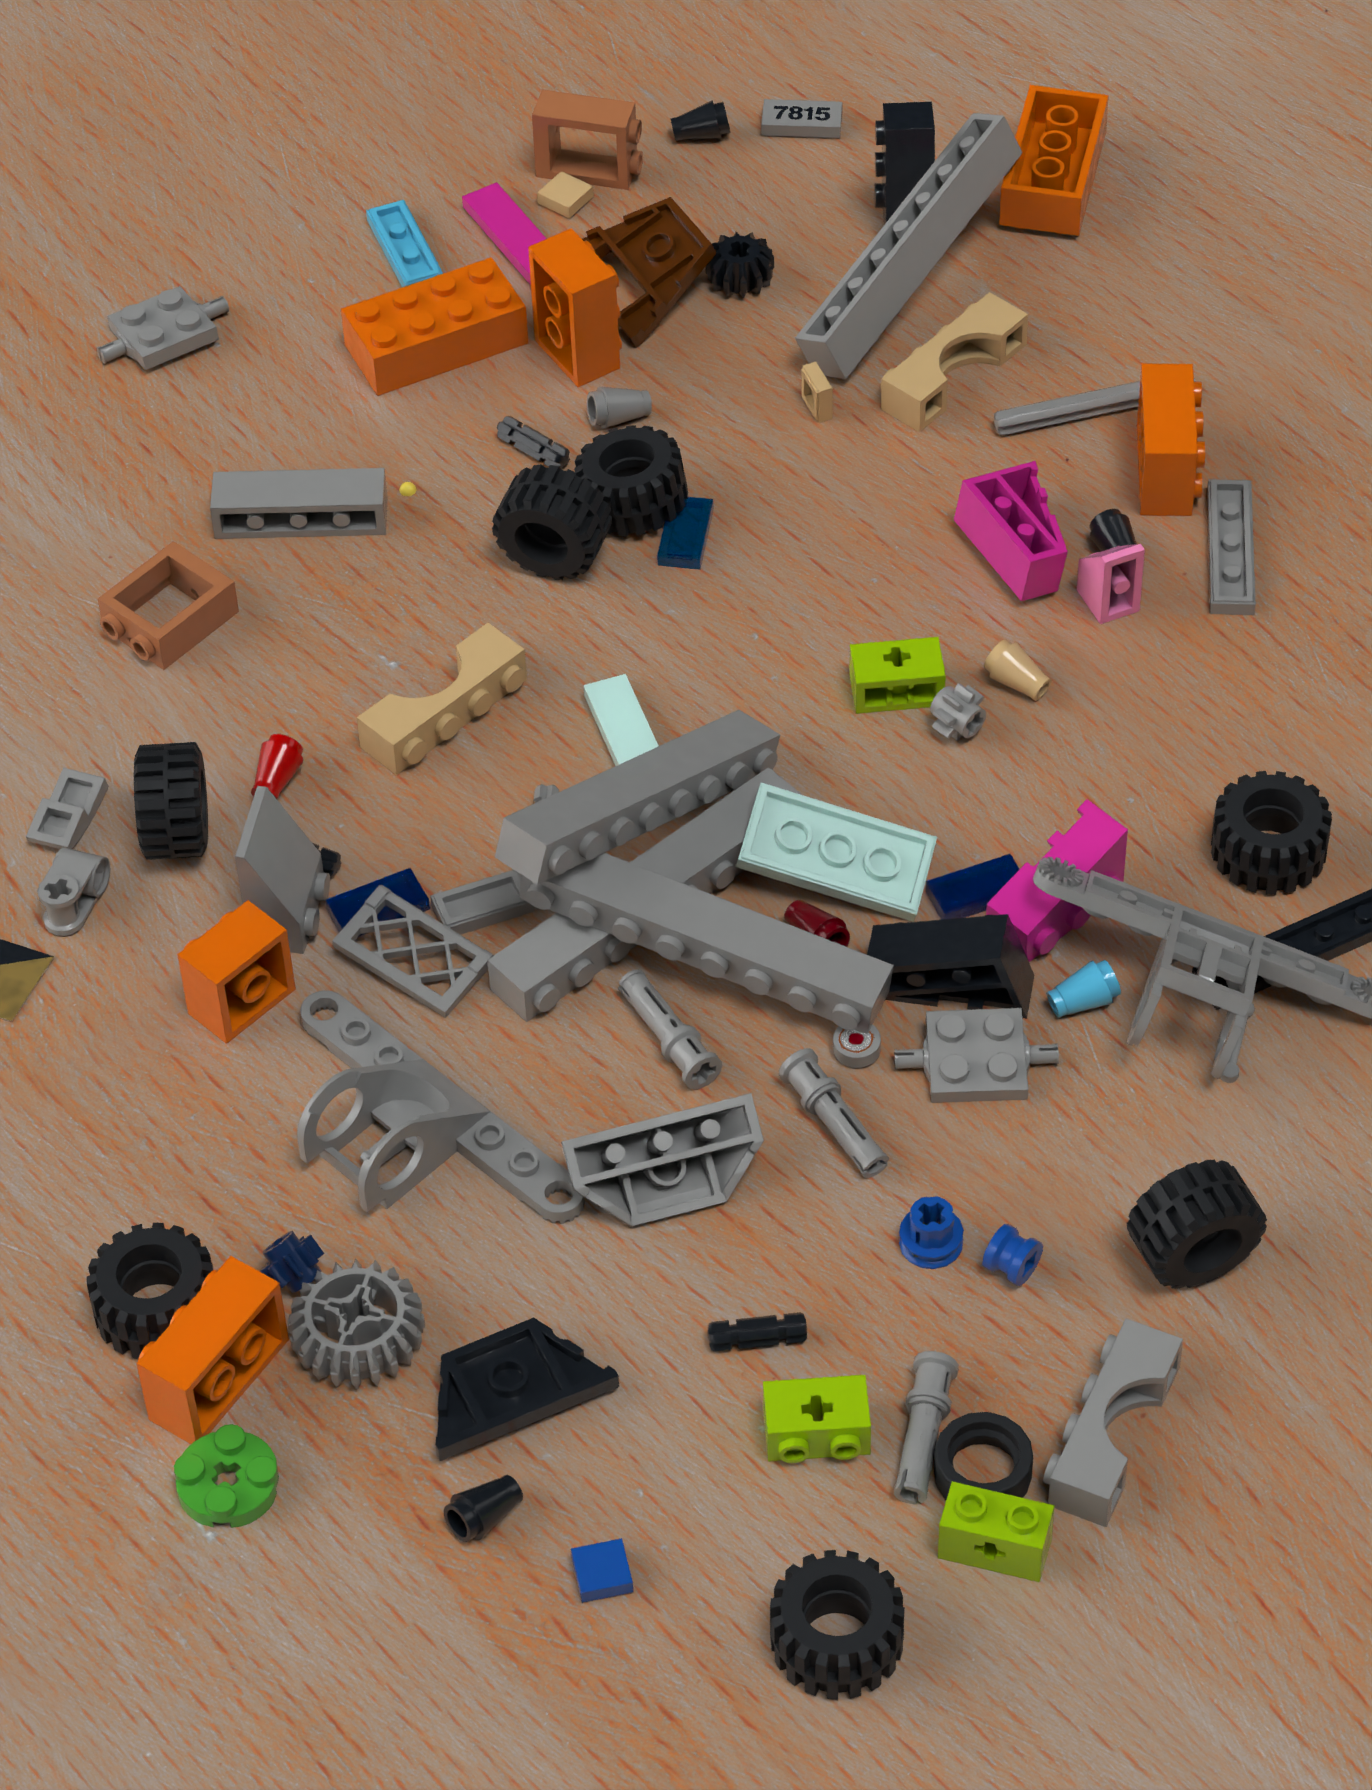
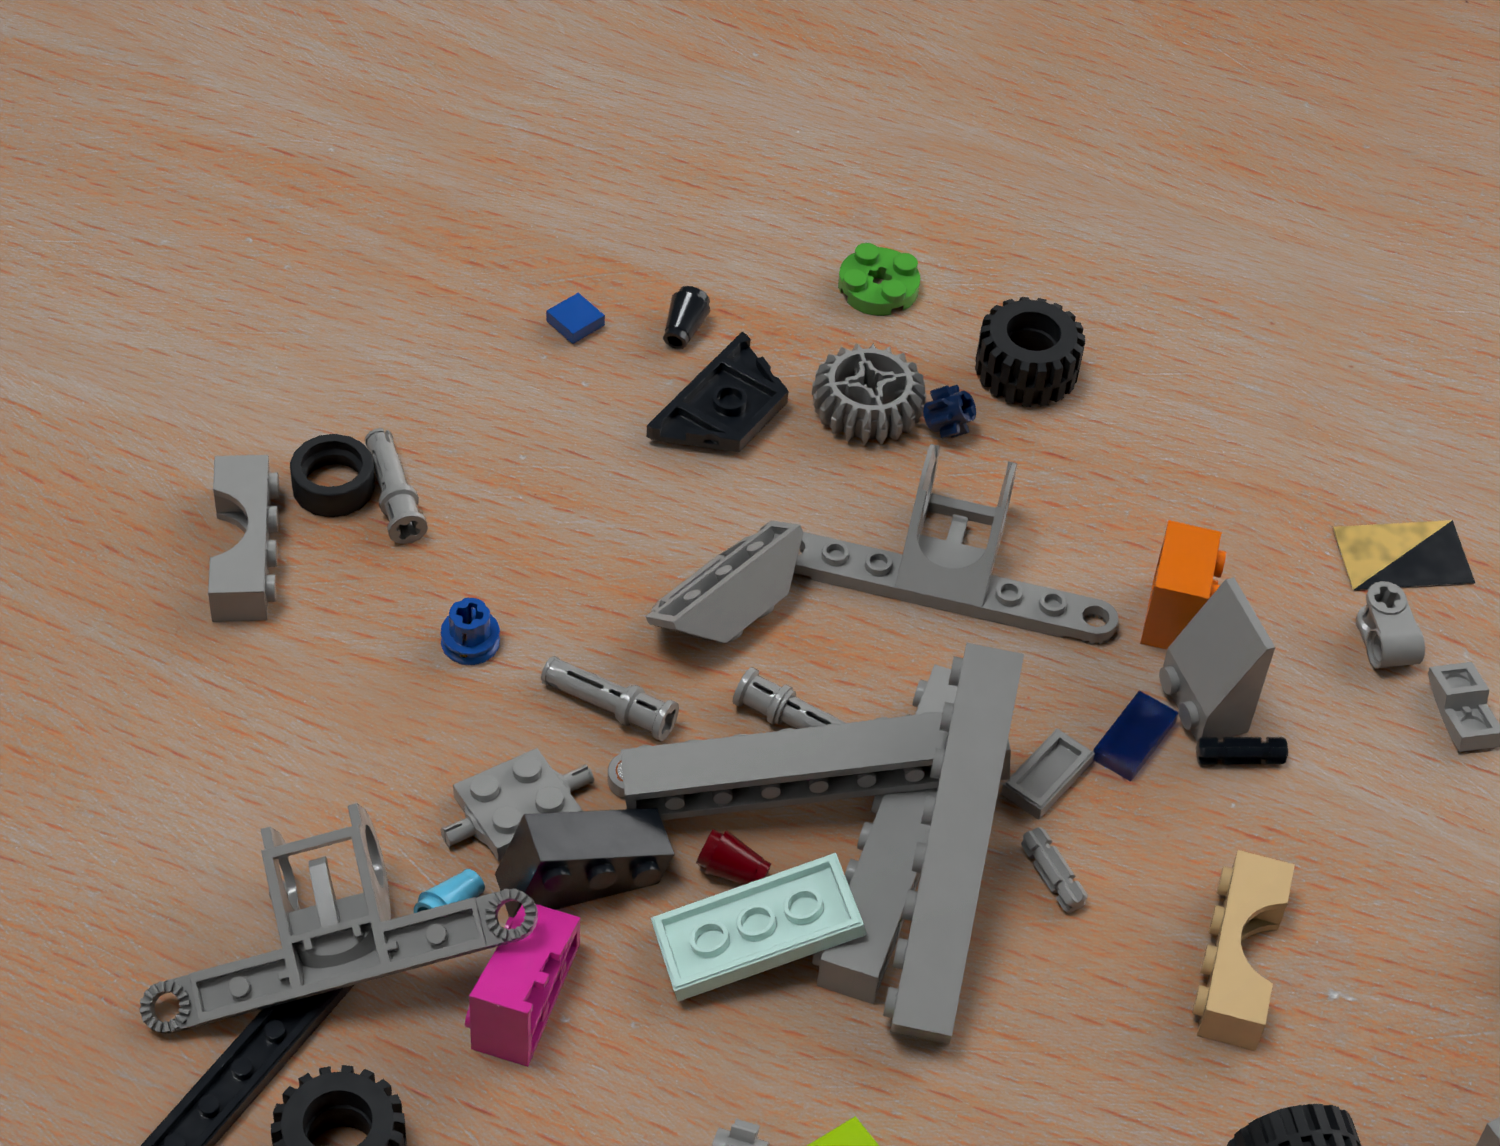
camera: 145 degrees right, 0 degrees up
(170, 800) = (1370, 700): black tyre -> none
(212, 1350) = (949, 315): orange brick -> none
(277, 763) = (1331, 817): red cone -> none
(412, 984) = (1089, 675): light grey window -> none
(619, 718) = (1043, 995): light aqua tile -> none
(757, 1331) = (565, 509): black axle -> none
(817, 1418) = (478, 455): lime brick -> none
(842, 1587) = (380, 322): black tyre -> none
(971, 888) = (610, 979): clear blue tile -> none
(995, 1531) = (291, 417): lime brick -> none
(1012, 1254) = (390, 632): blue wheel -> none
(1196, 1224) = (234, 677): black tyre -> none

